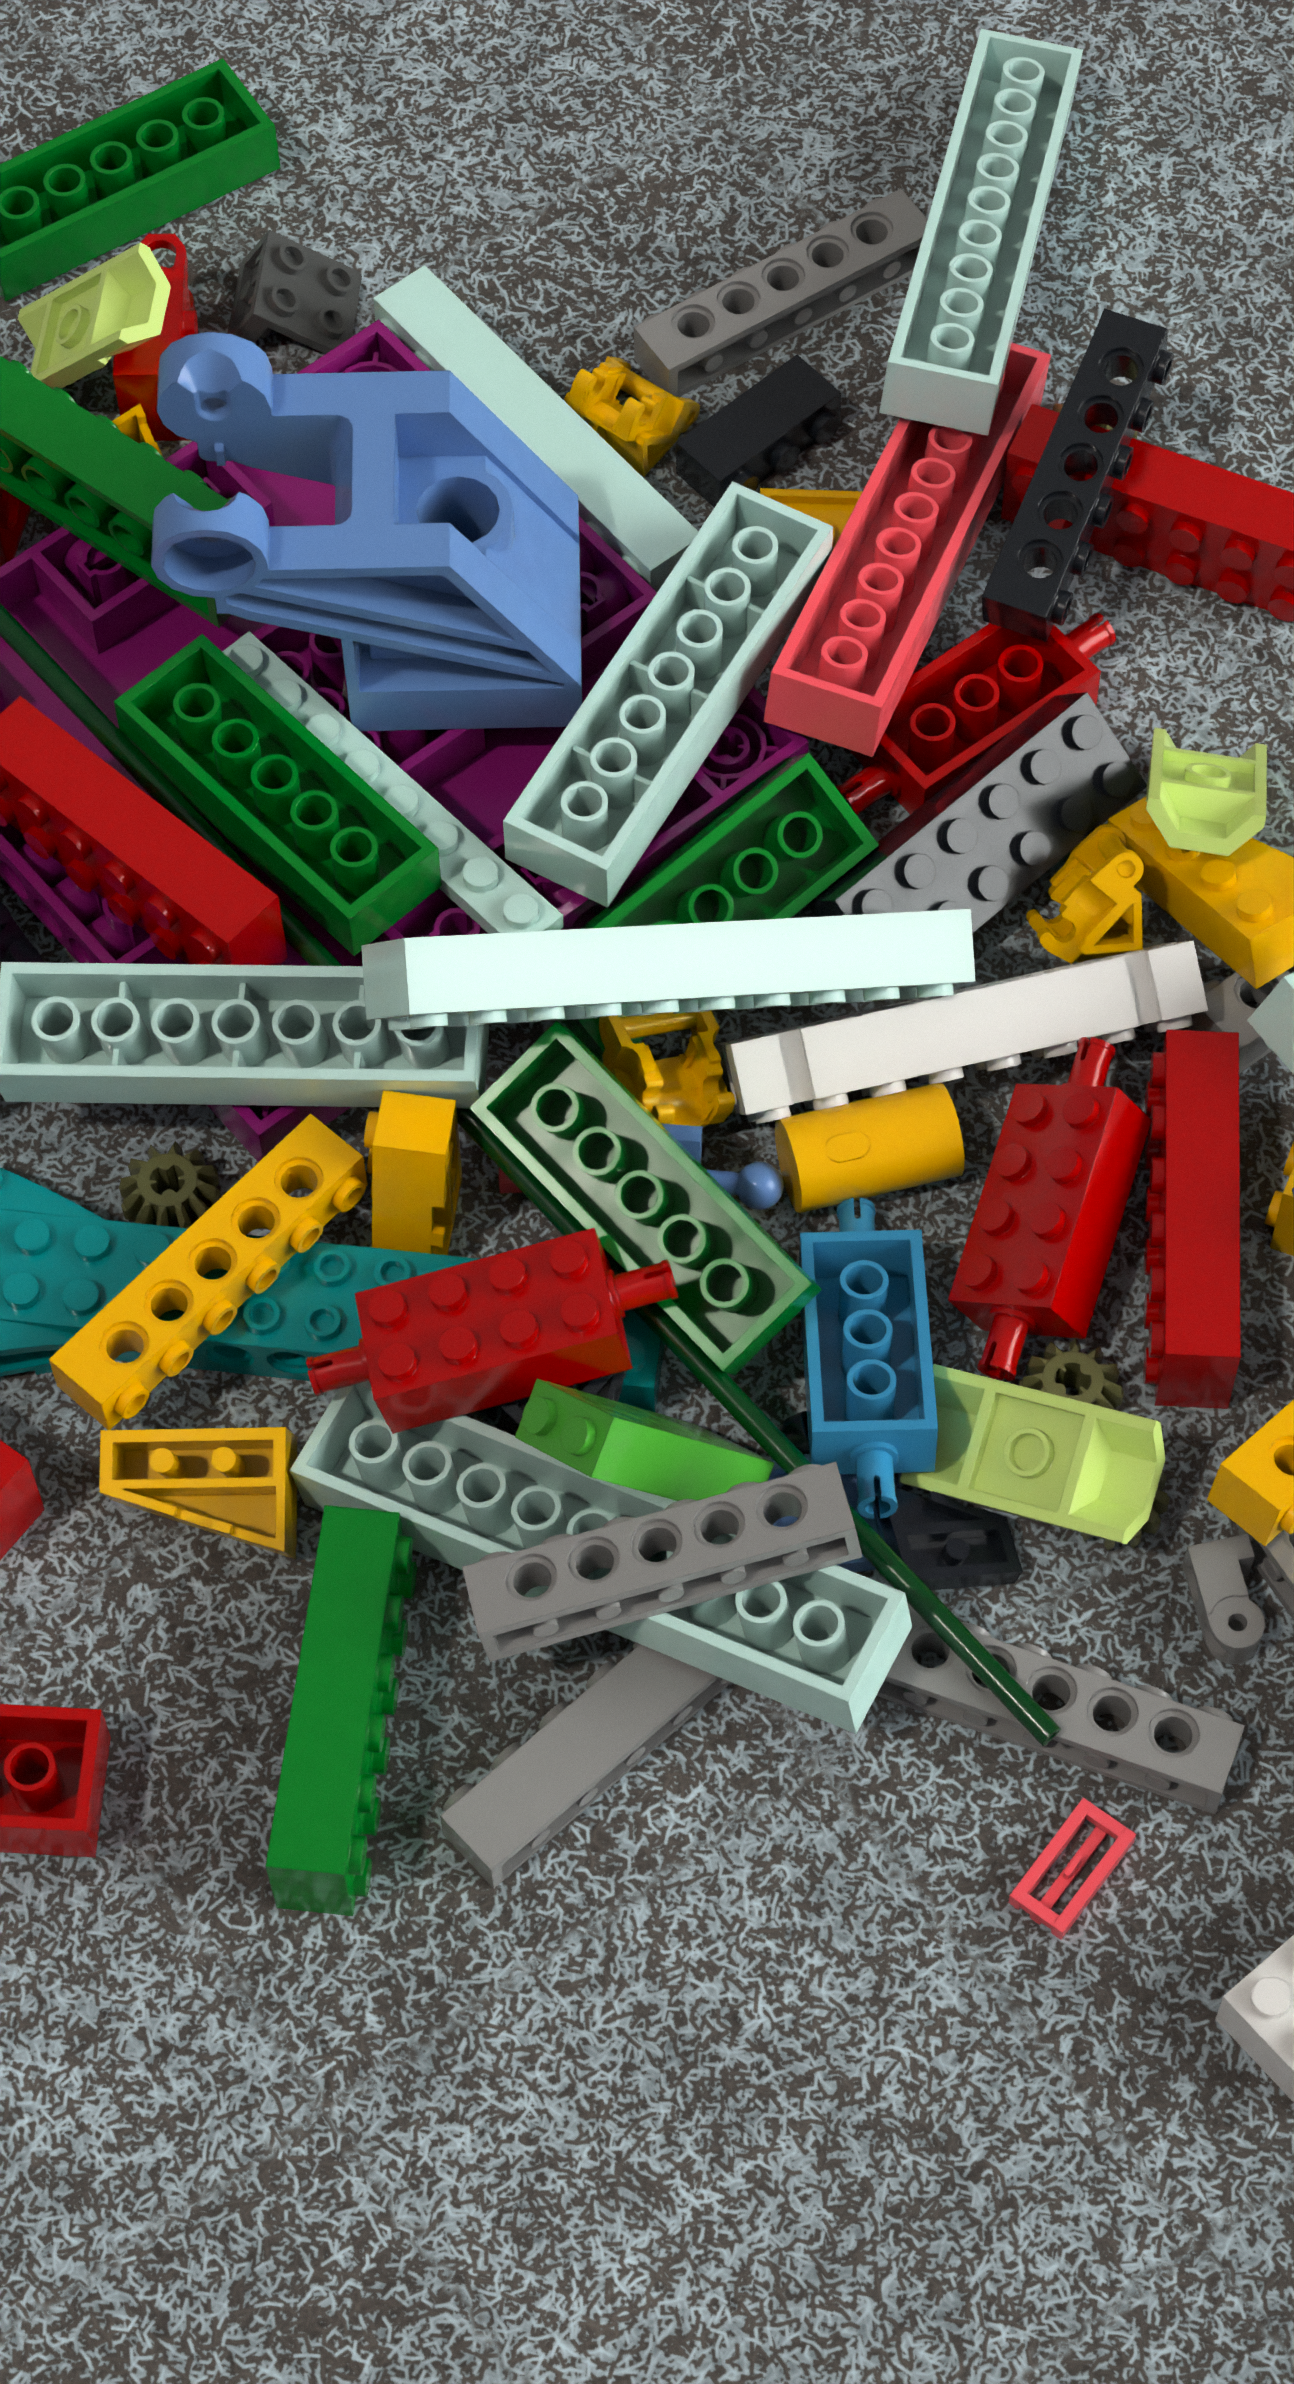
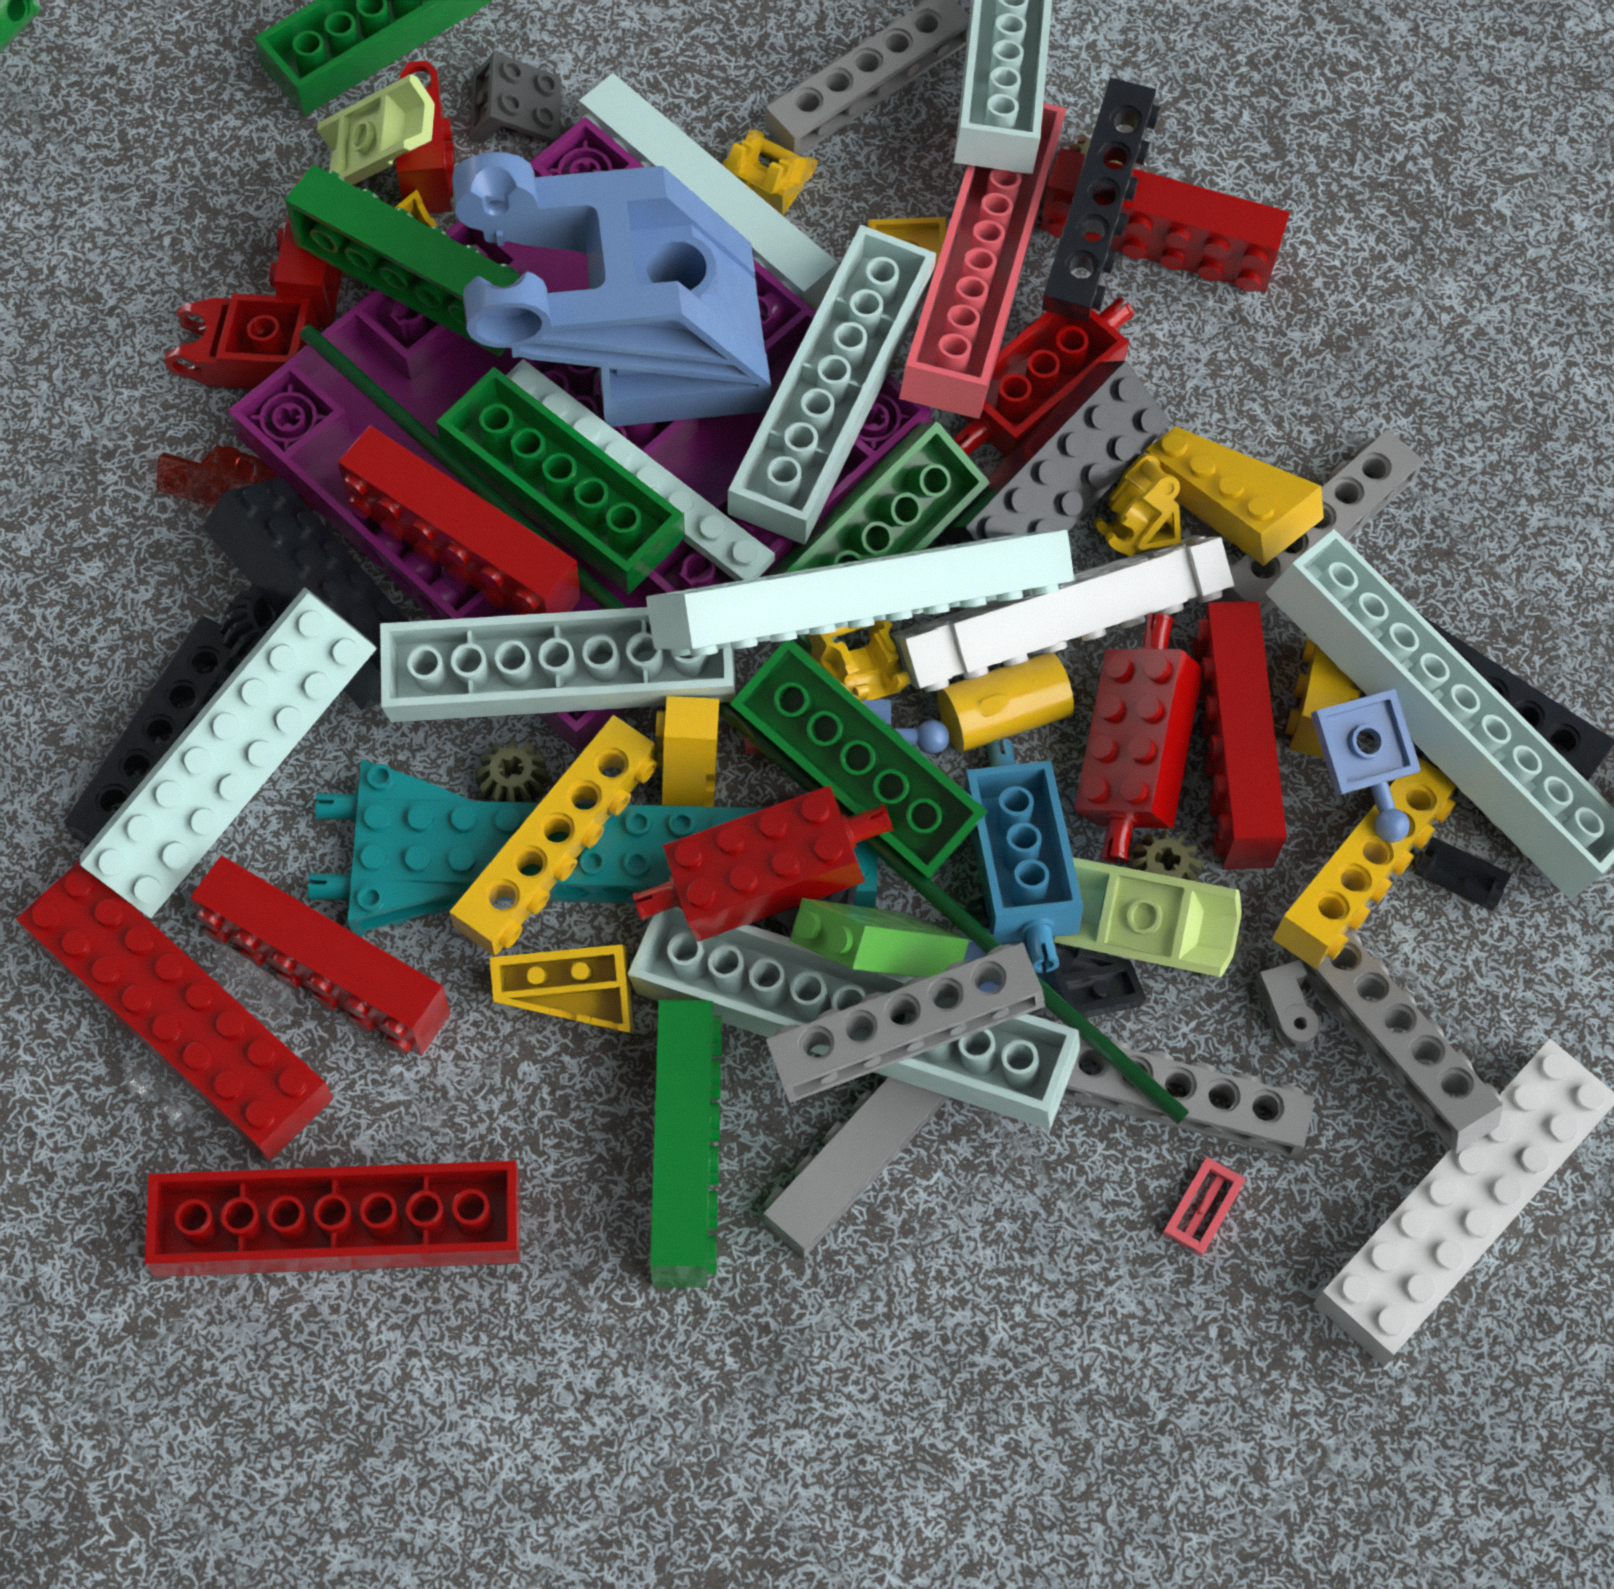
camera: 10 degrees left, 5 degrees up
(760, 431) = (863, 179): black brick -> none
(1204, 797) = (1216, 430): yellowish green piece -> none

